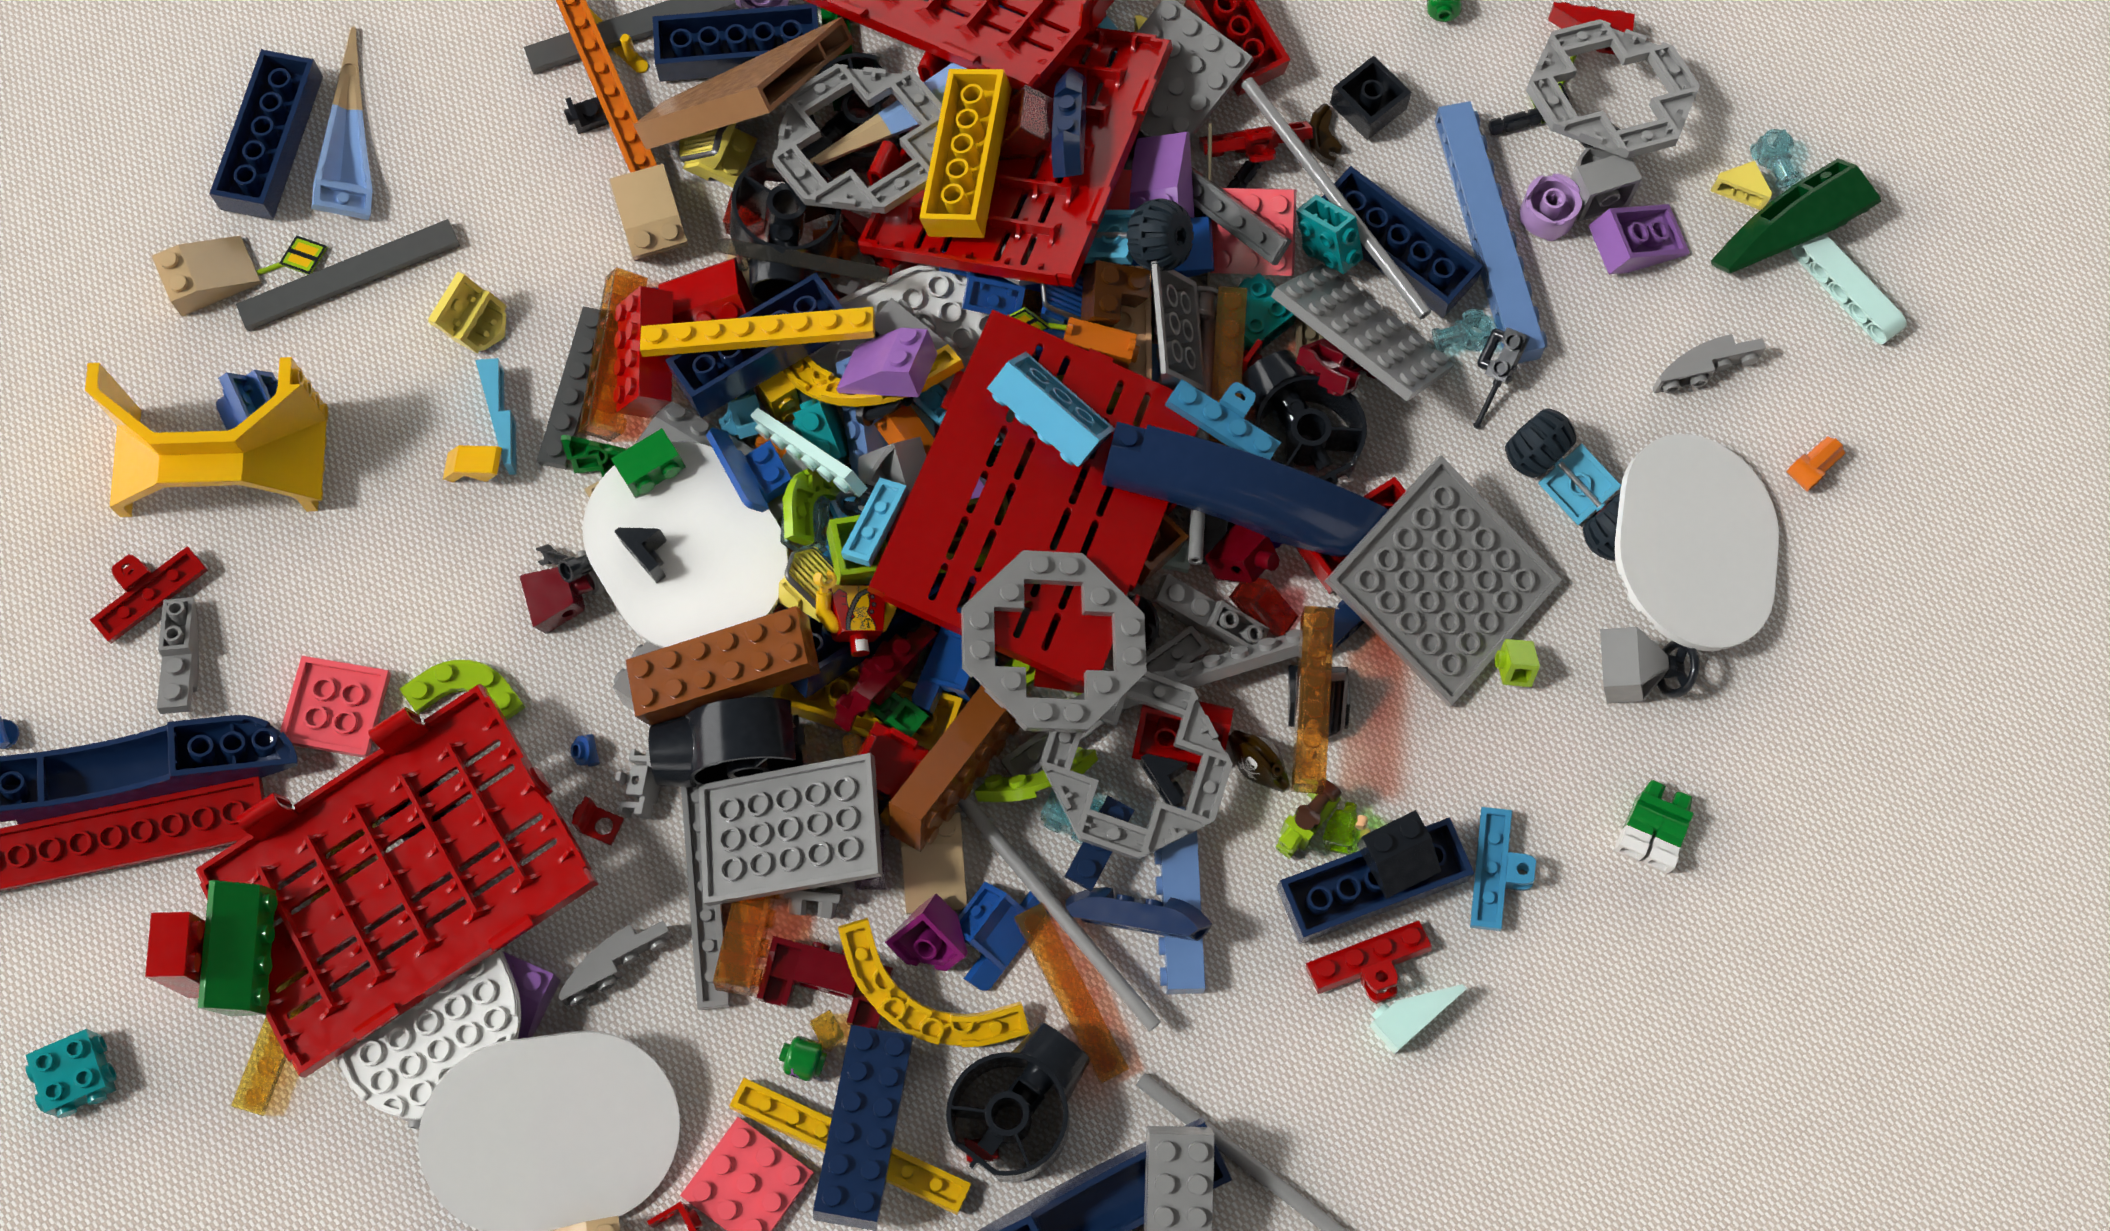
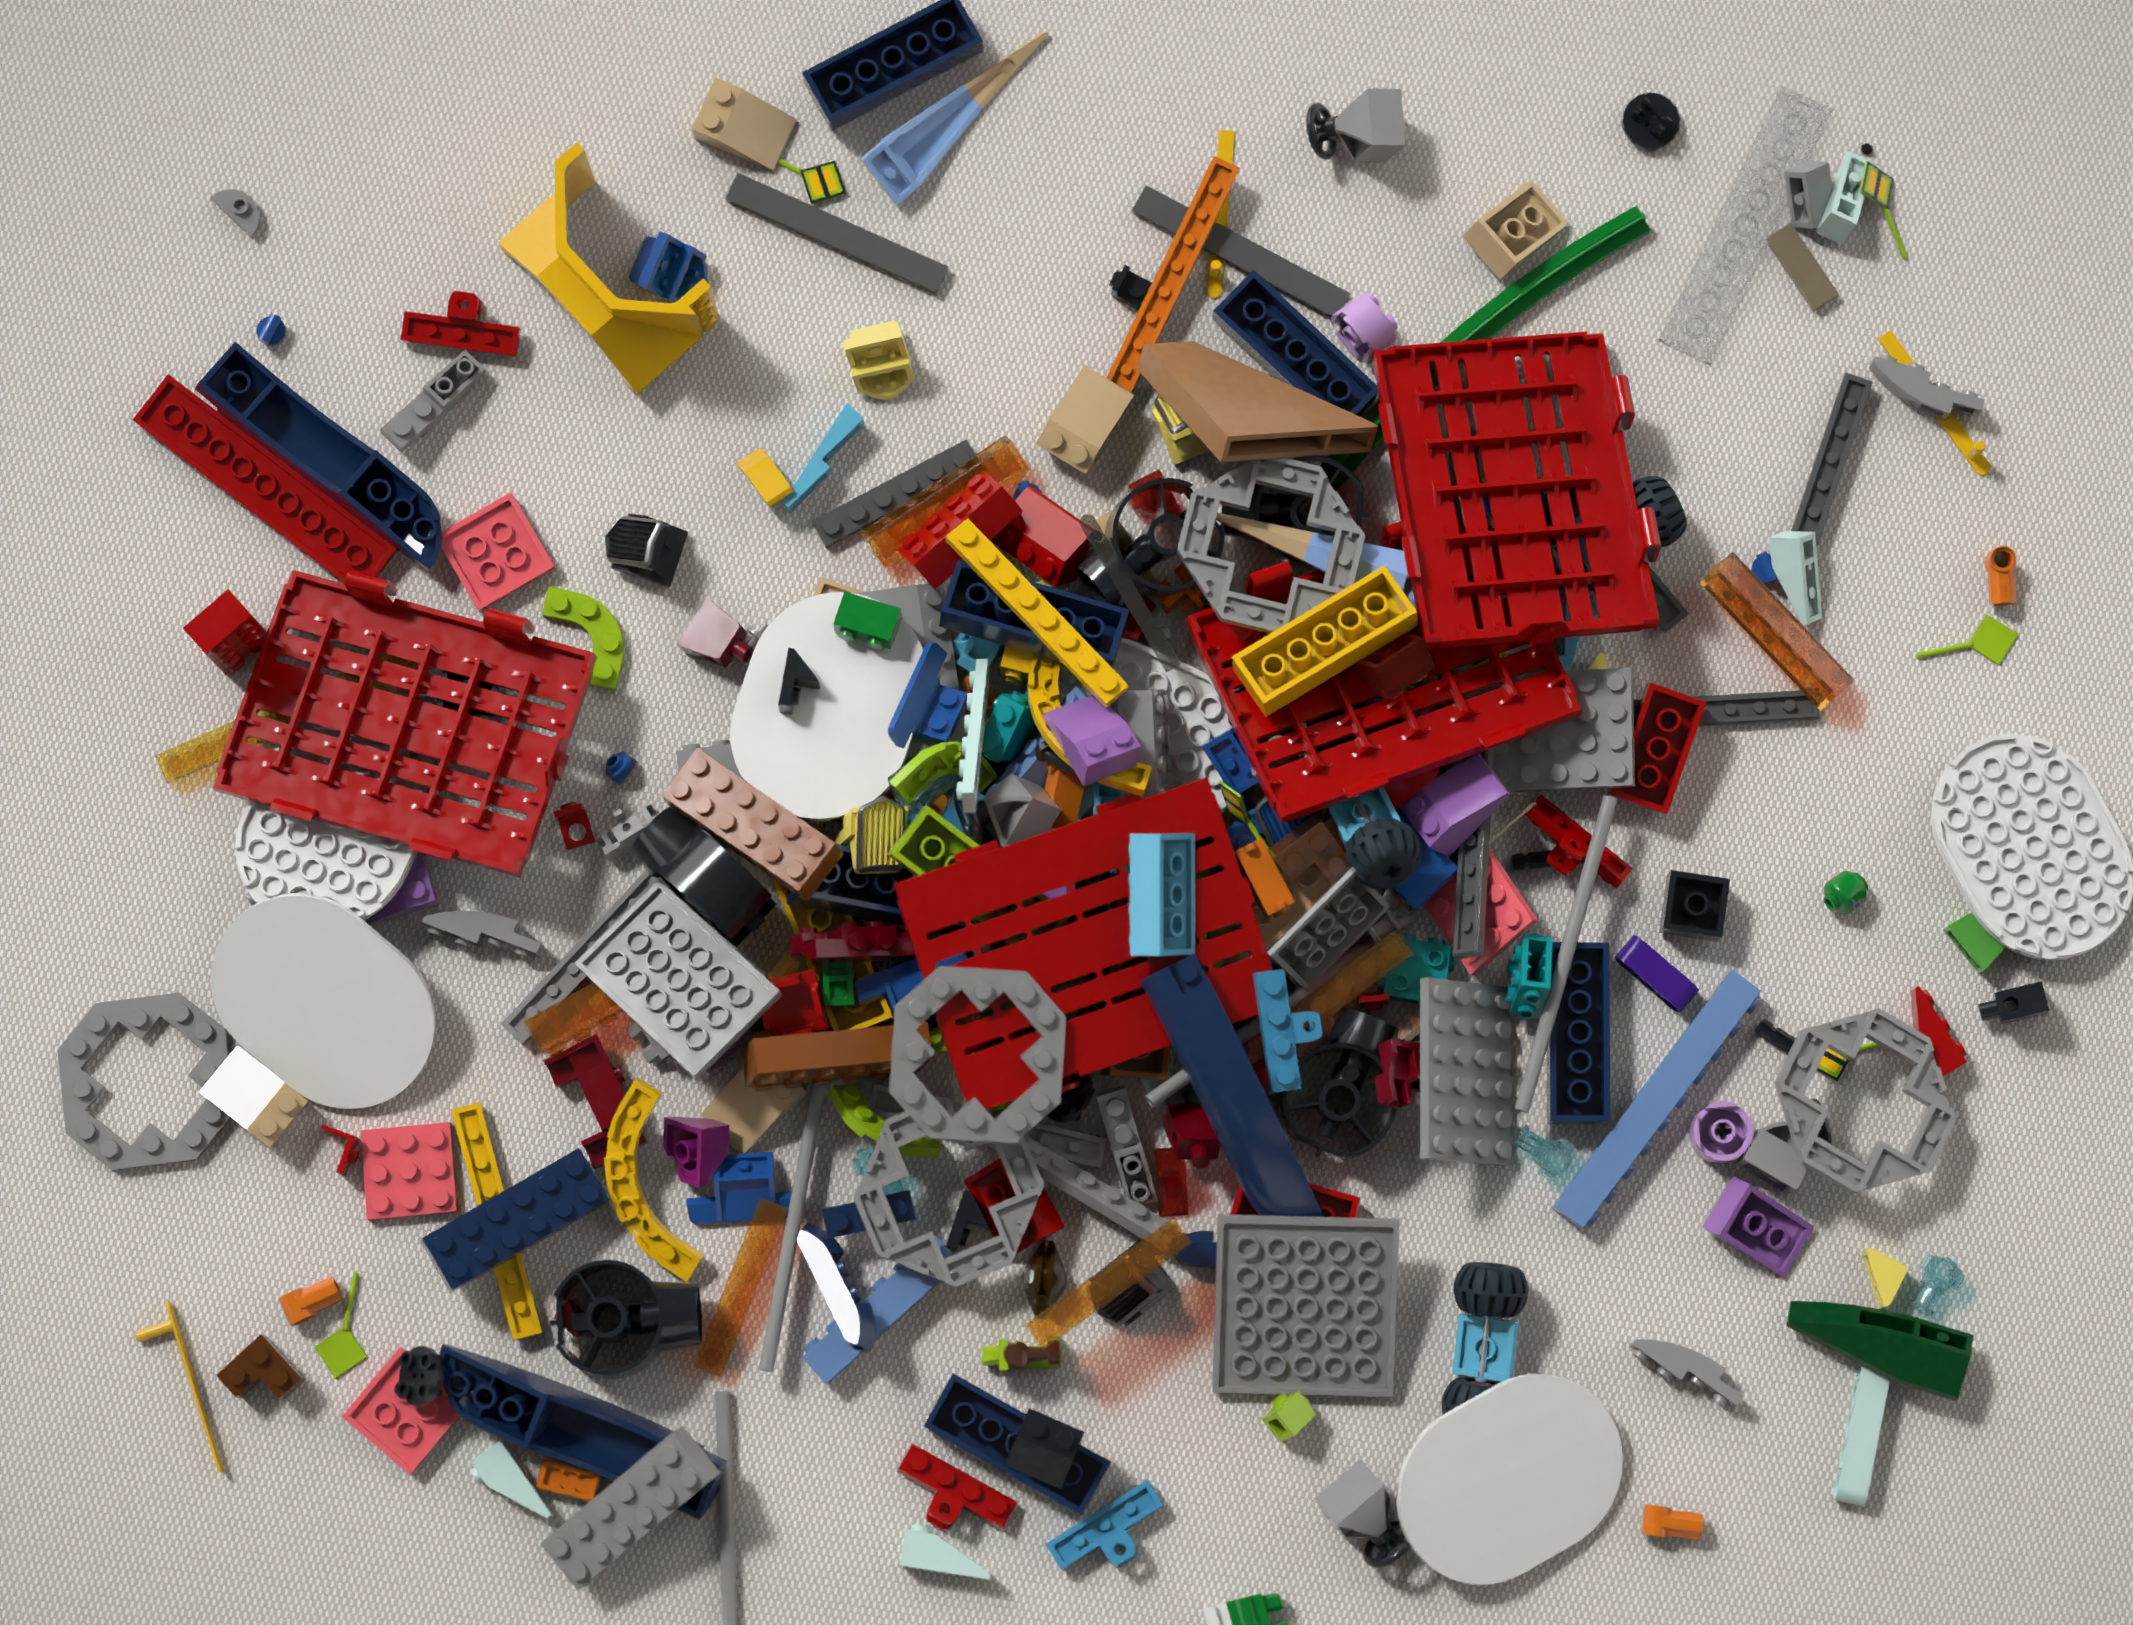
camera: 50 degrees right, 10 degrees up
(71, 1073) = (82, 621): teal brick -> none
(237, 948) = (260, 663): green slope -> none
(440, 592) = (645, 548): none -> black piece
(568, 566) = (743, 632): black brick -> none
(589, 455) = (856, 576): green slope -> none
(803, 1058) = (529, 1132): green head -> none
(827, 1030) = (563, 1132): clear yellow slope -> none
(851, 613) = (870, 883): torso -> none
(875, 522) = (952, 842): medium azure plate -> none
(1069, 124) = (1423, 699): dark blue brick -> none
(1322, 140) = (1629, 891): dark brown piece -> none
(1343, 830) = (1039, 1389): clear neon green piece -> none
(1397, 161) = (1656, 974): none -> dark purple beam
(1503, 367) = (1535, 1208): black piece -> none

